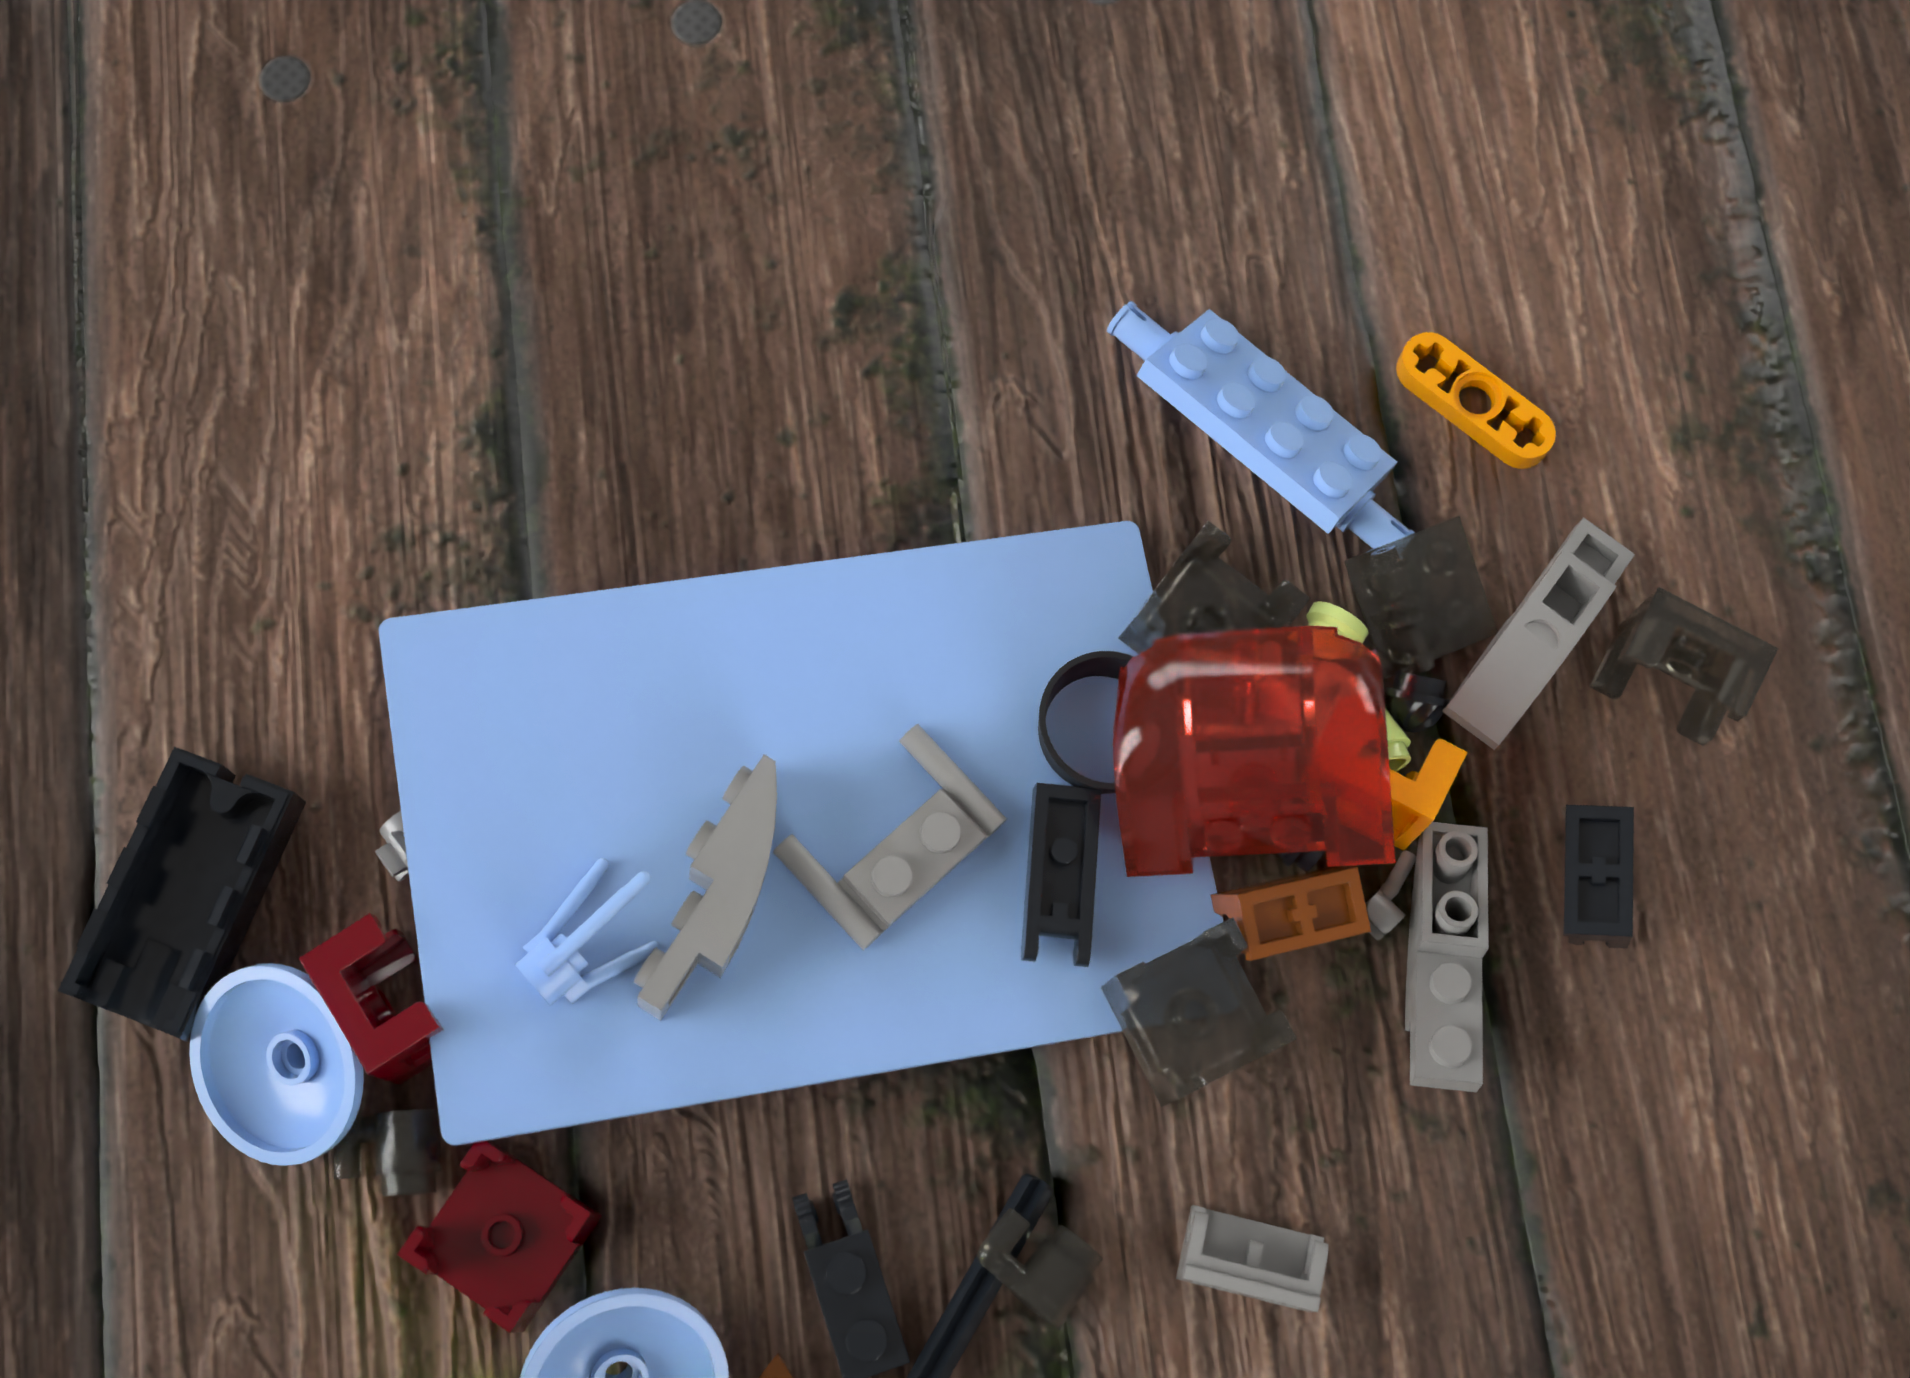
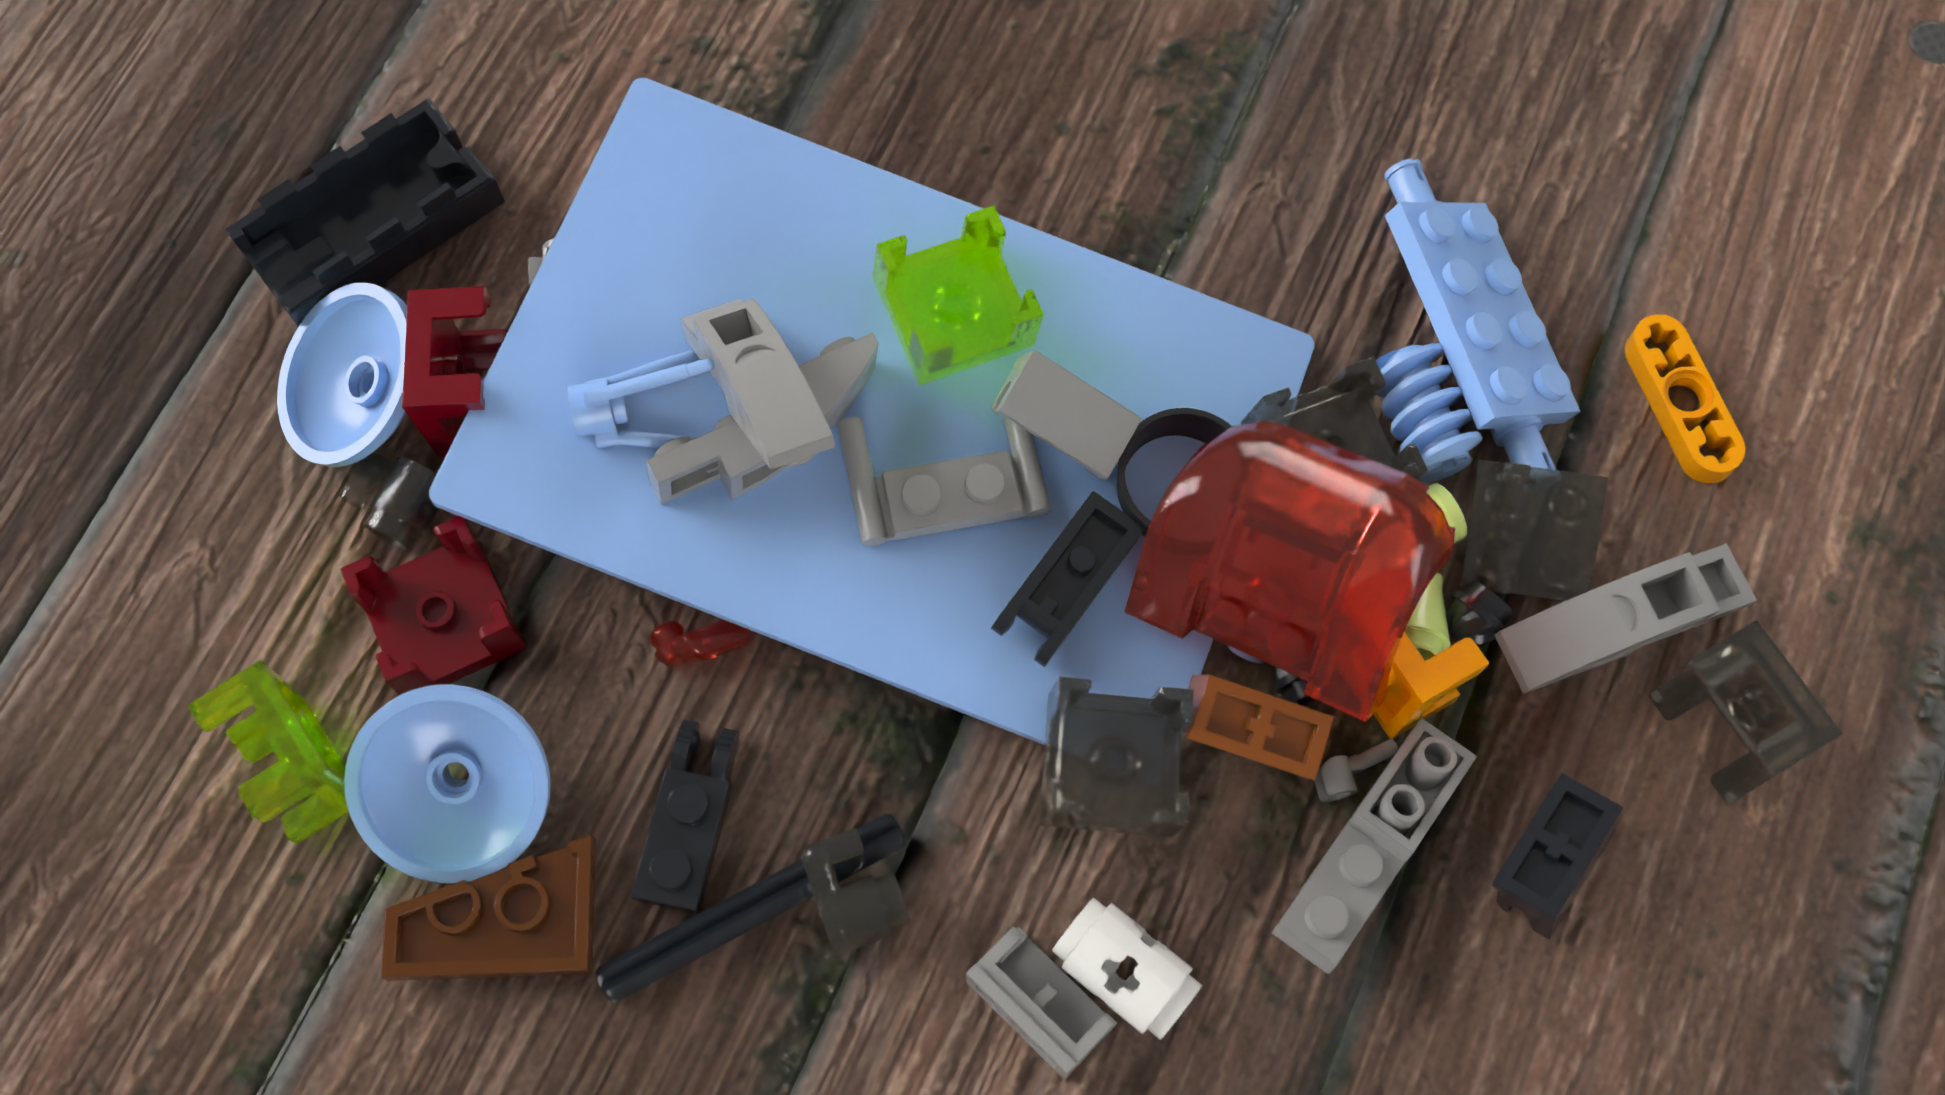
camera: 35 degrees right, 5 degrees down
(697, 864) = (760, 382): none -> light grey slope
(765, 1122) = (702, 644): none -> clear red arm
(809, 673) = (955, 299): none -> clear neon green panel
(973, 728) = (1066, 413): none -> light grey hinge
(1270, 536) = (1422, 409): none -> light blue piece
(1341, 1203) = (1152, 994): none -> white piece

